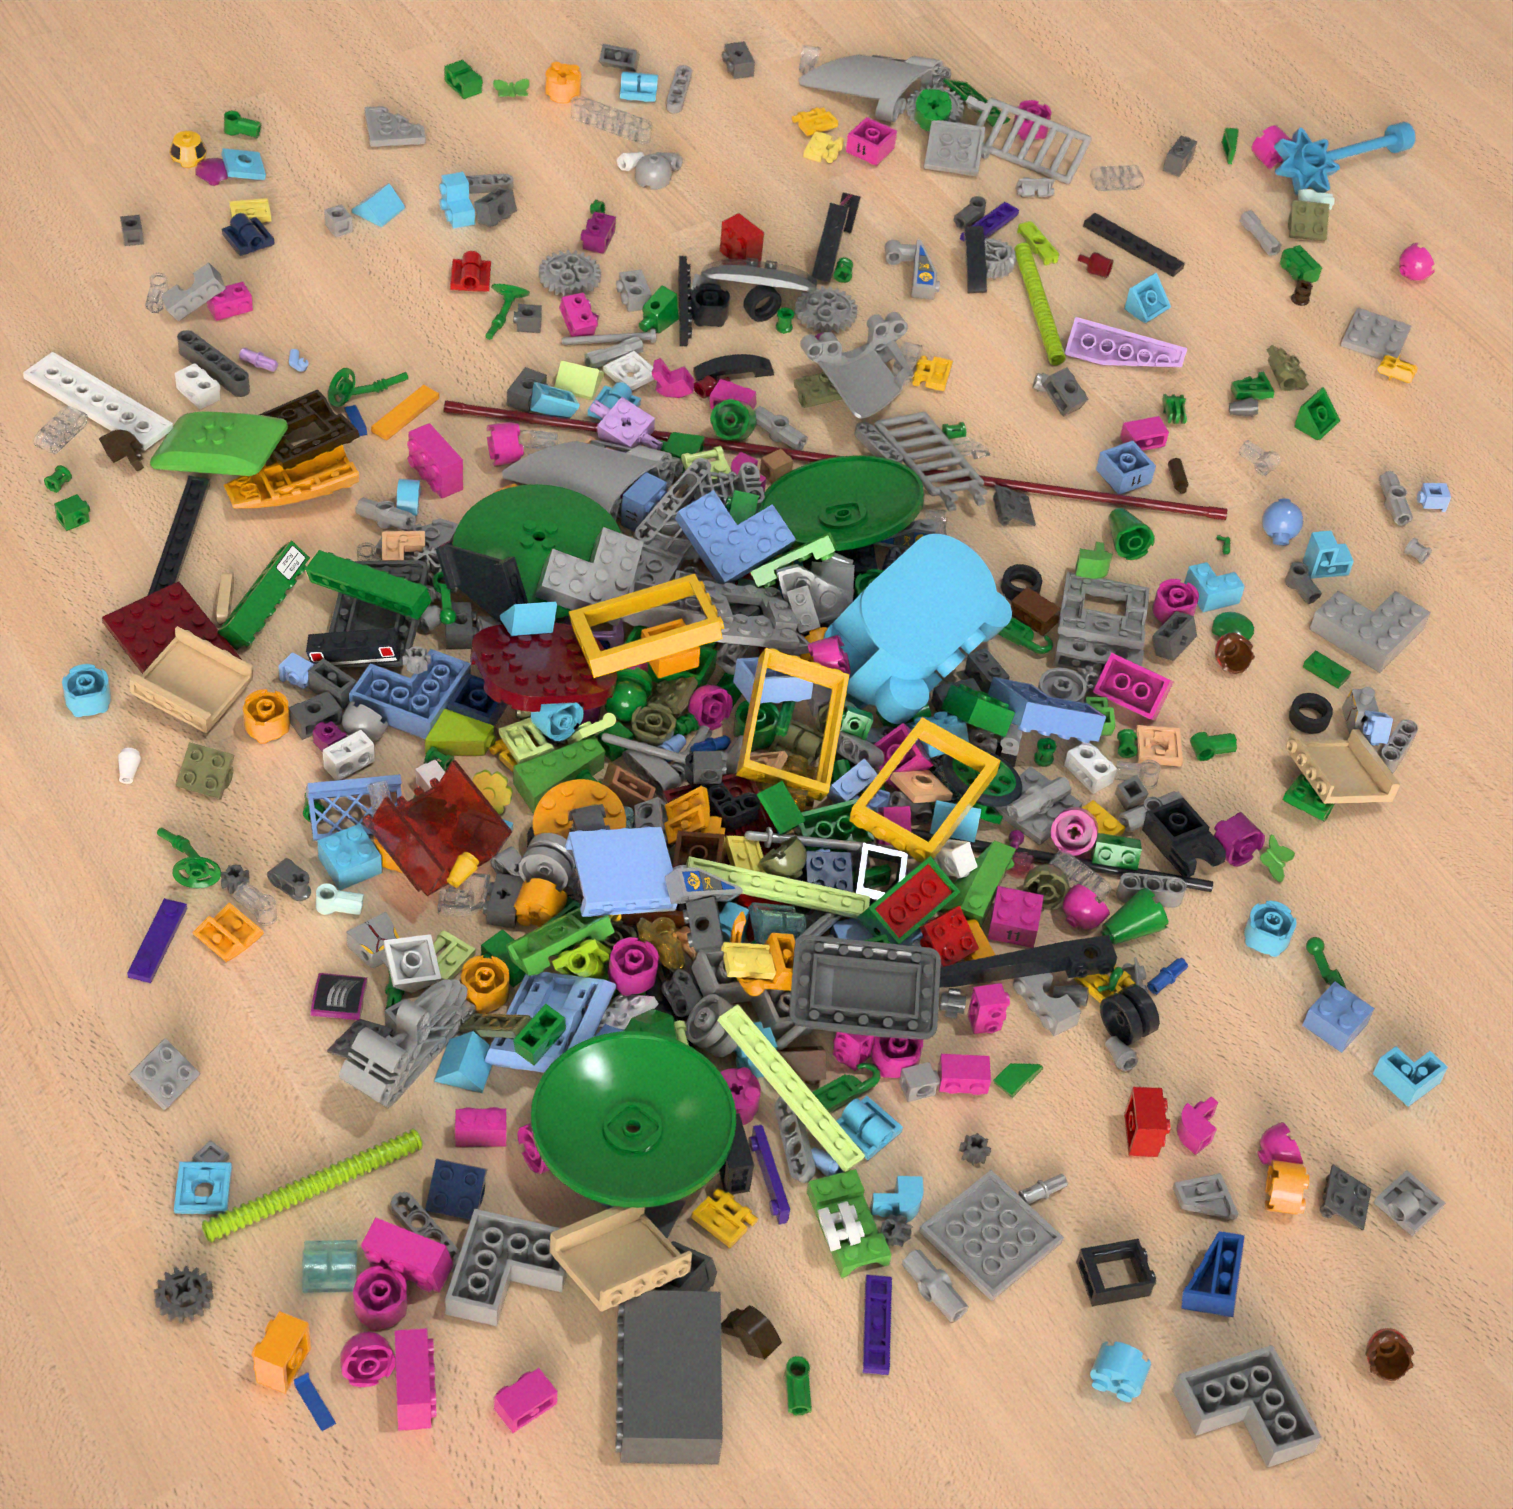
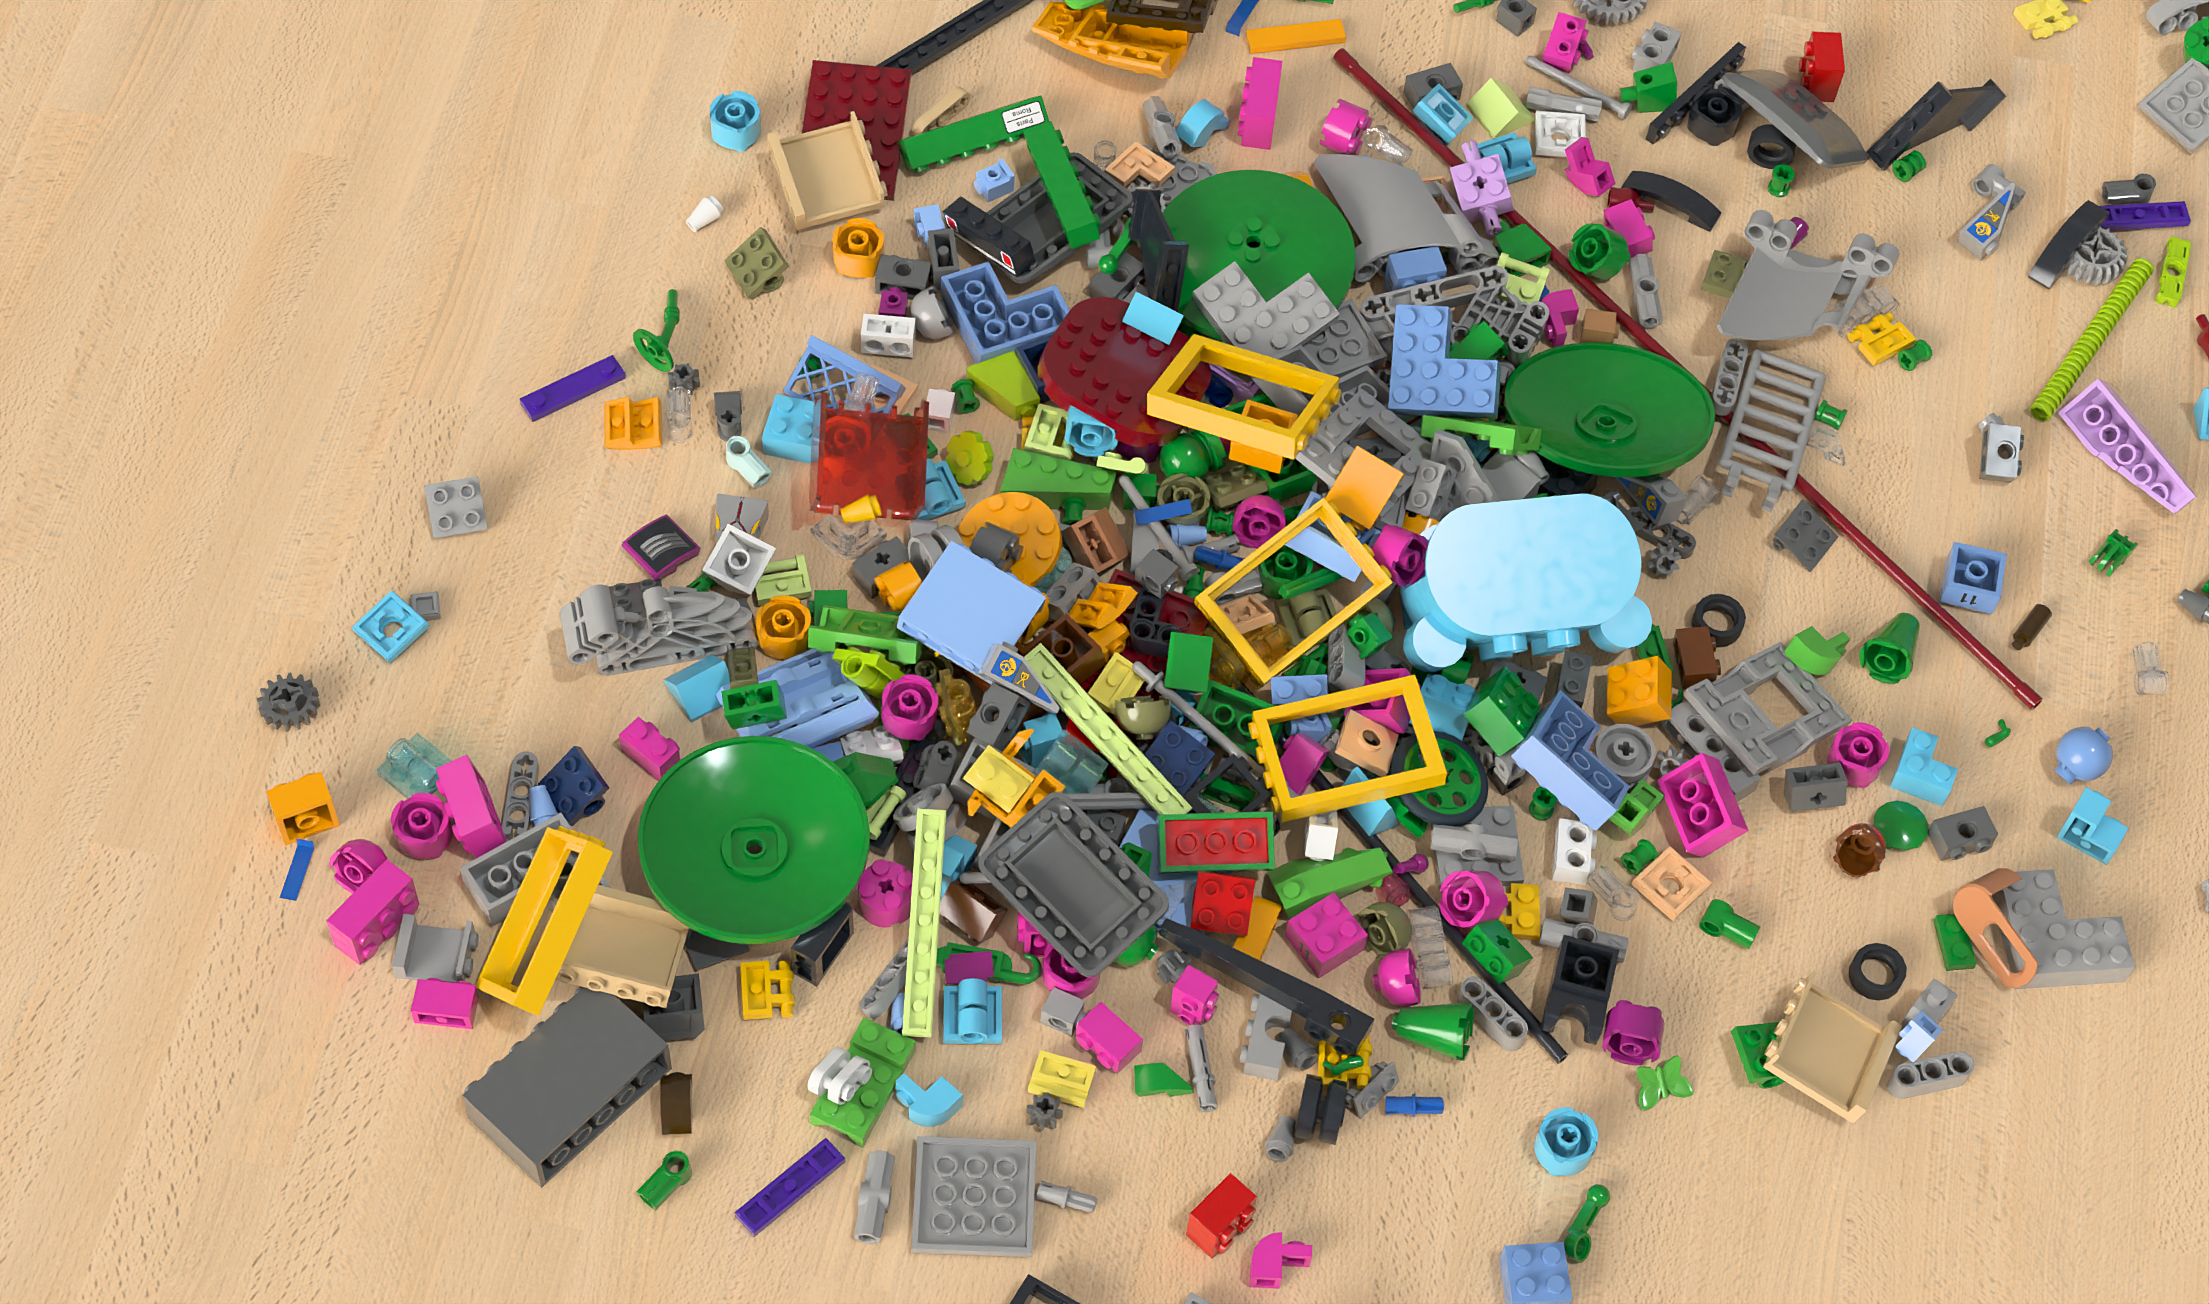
camera: 45 degrees right, 10 degrees up
(309, 616) = (995, 181): none -> light blue brick
(312, 1185) = (474, 691): lime piece -> none
(416, 659) = (1025, 286): light grey gear -> none
(449, 1221) = (540, 805): none -> light blue cone
(479, 1373) = (434, 951): none -> light grey panel
(524, 1284) = (527, 911): none -> yellow window
(652, 738) = (1163, 512): none -> blue piece
(776, 627) = (1364, 488): none -> light orange panel
(778, 1204) = (861, 954): dark purple plate -> none
(826, 309) = (1840, 197): light grey gear -> none
(837, 1098) = (968, 966): none -> magenta sticker
(871, 141) = (2101, 40): dark pink brick -> none
(896, 1230) = (892, 1122): dark grey gear -> none
(961, 368) = (1917, 353): none -> green bush
(961, 1120) = (1062, 1078): none -> light yellow plate
(1028, 1048) = (1203, 1079): none -> light grey pin
(1031, 650) = (1639, 692): none -> light orange brick
(1146, 433) = (2039, 557): dark pink brick -> none
(1269, 608) = (1973, 823): none -> dark grey brick
(1298, 579) = (2033, 836): dark grey piece -> none
(1328, 636) = (1977, 910): none -> piece

